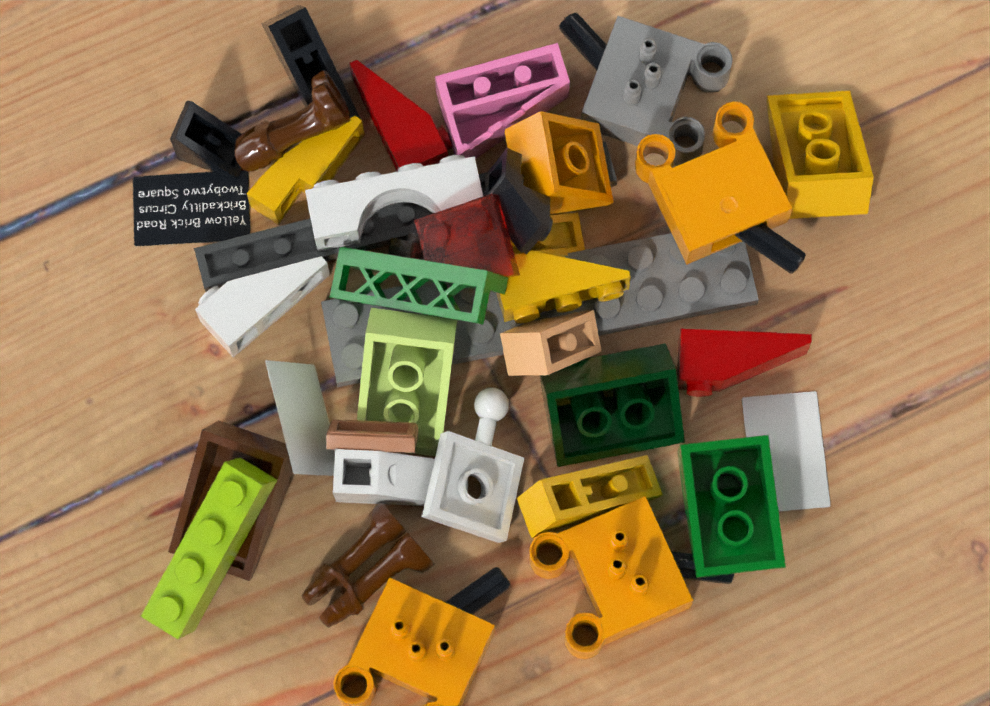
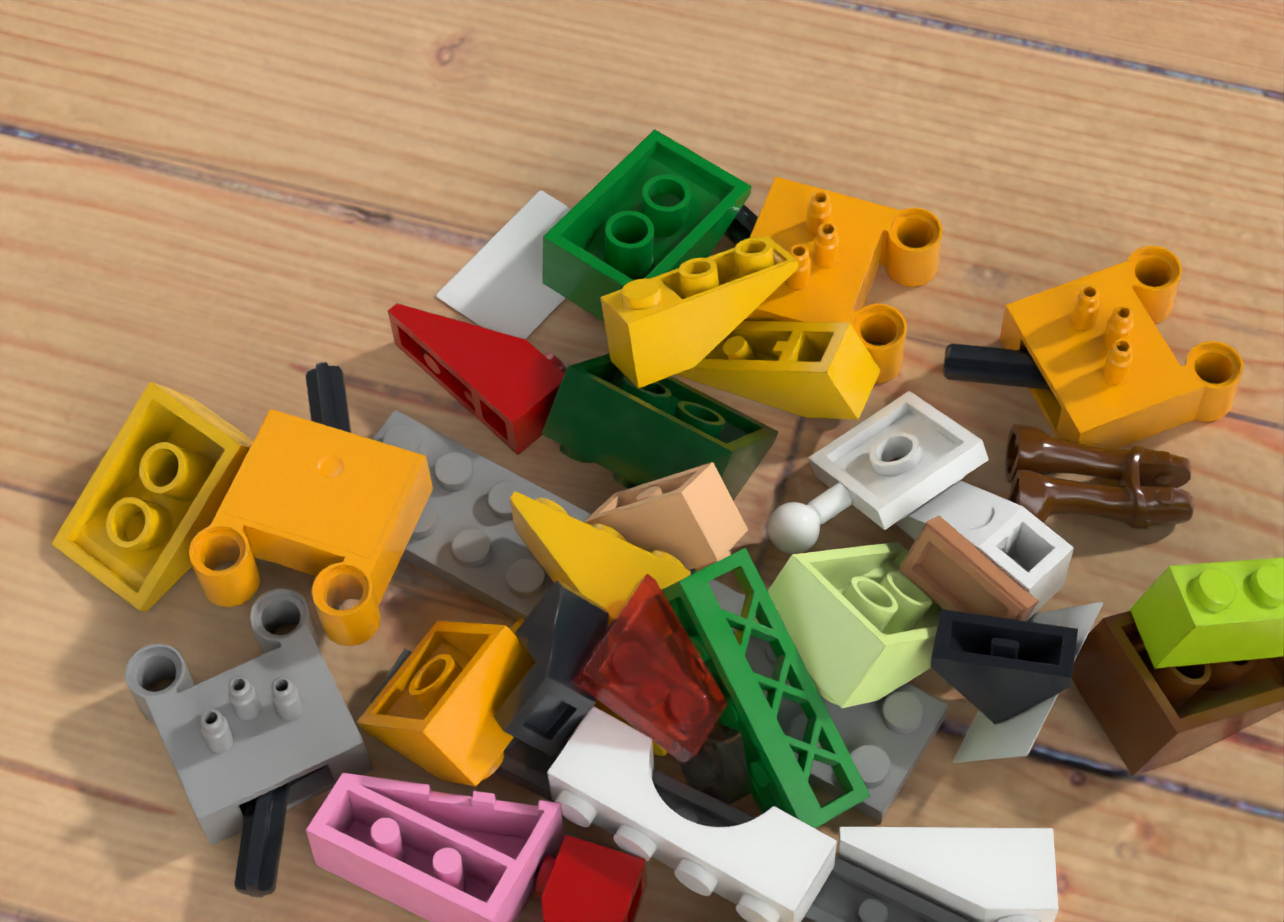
camera: 135 degrees left, 15 degrees down
(319, 403) = (1003, 661): none -> black slope
(648, 465) = (682, 315): none -> yellow slope

